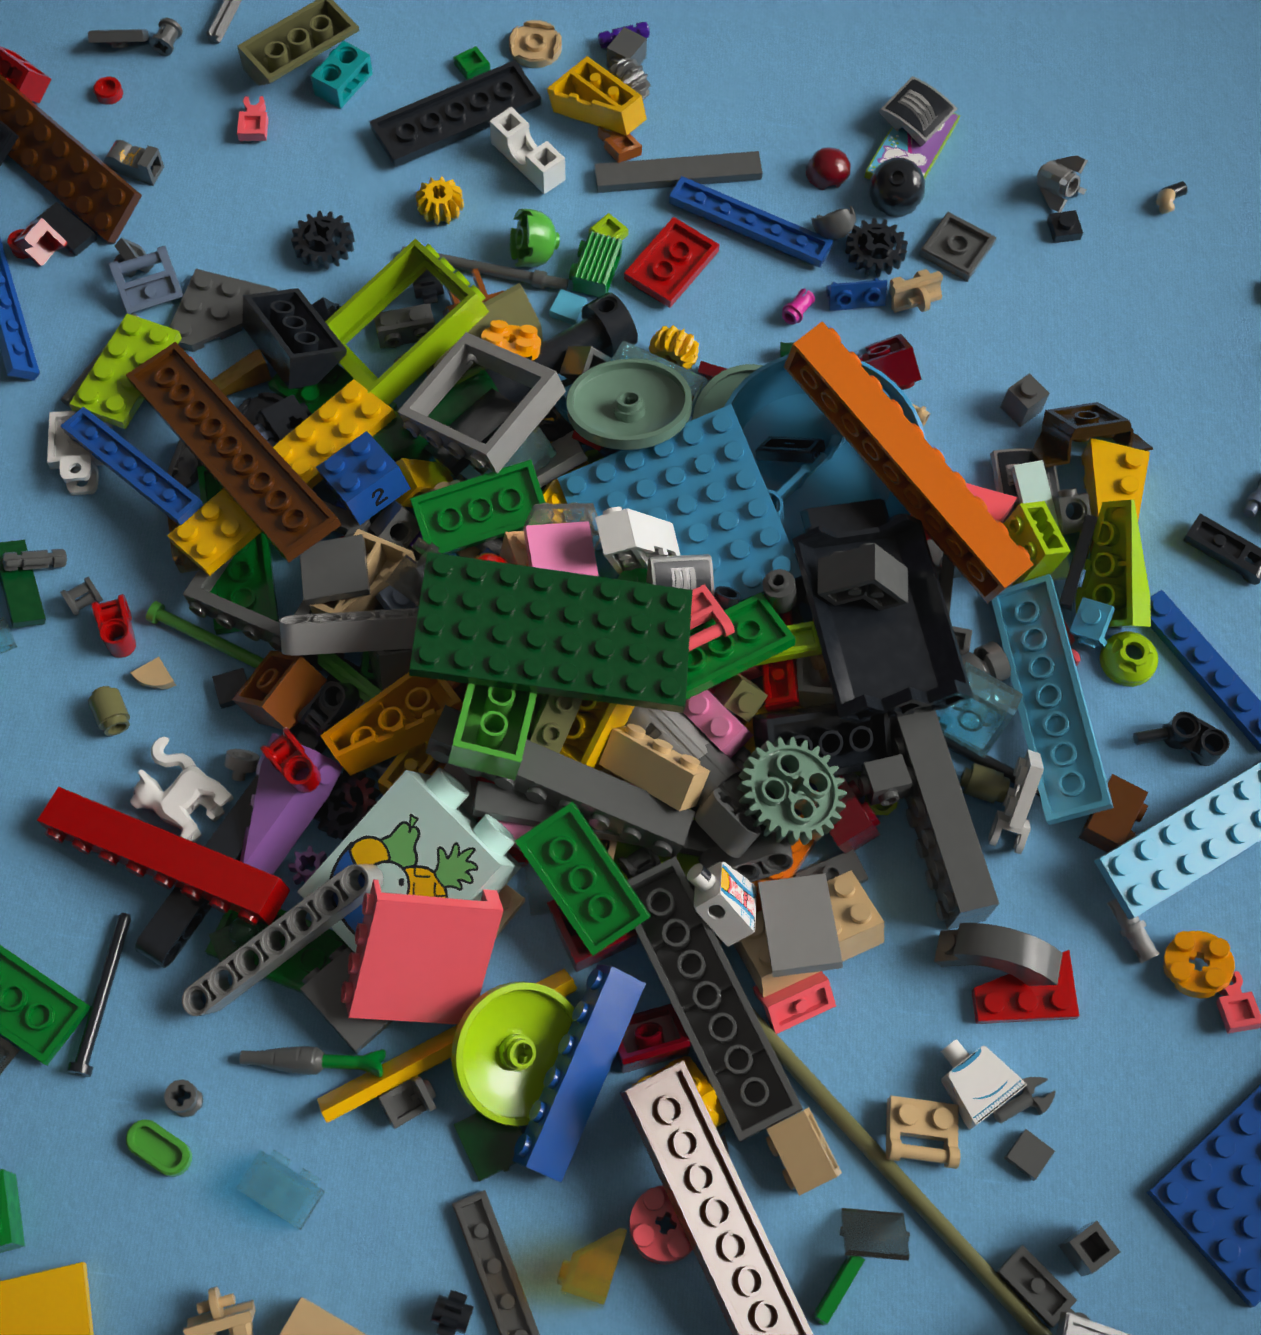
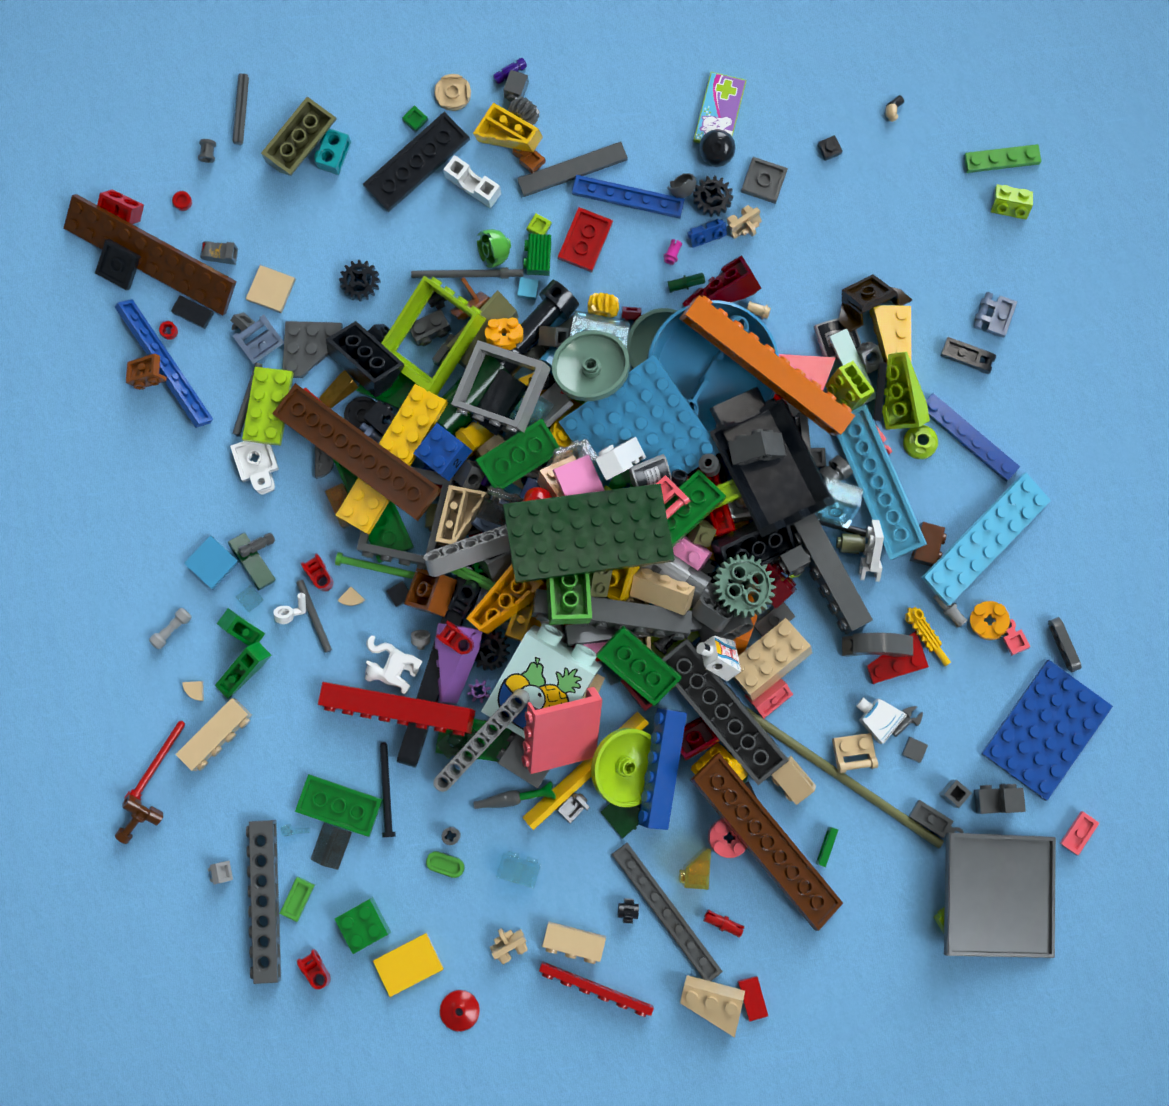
camera: 10 degrees left, 15 degrees up
(40, 241) = (180, 328): panel -> none
(41, 673) = (285, 614): none -> white plate
(71, 595) = (292, 560): dark grey bush -> none
(85, 689) = (314, 617): none -> dark grey bar
(109, 710) = (333, 627): olive brick -> none
(118, 38) = (175, 159): dark grey plate -> none
(132, 466) = (296, 473): blue plate -> none
(190, 225) = (270, 289): none -> tan tile
(253, 121) = (286, 203): coral plate -> none
(335, 570) = (445, 516): dark grey tile -> none
(439, 200) = (420, 238): yellow gear -> none
(790, 449) = (693, 366): black tile -> none
(800, 925) = (764, 660): light grey tile -> none
(828, 168) = (669, 142): dark red hair -> none
(874, 1234) = (840, 814): clear smoke piece -> none
(918, 110) = (718, 85): slope -> none
(1024, 400) = (827, 285): dark grey brick -> none
(1060, 179) = (820, 116): light grey brick -> none
(1072, 928) = (923, 629): none -> yellow piece
(1092, 623) = (895, 428): medium azure bracket -> none
(1177, 1283) = (1005, 799): none -> dark grey brick
(1197, 734) = (967, 485): black beam -> none

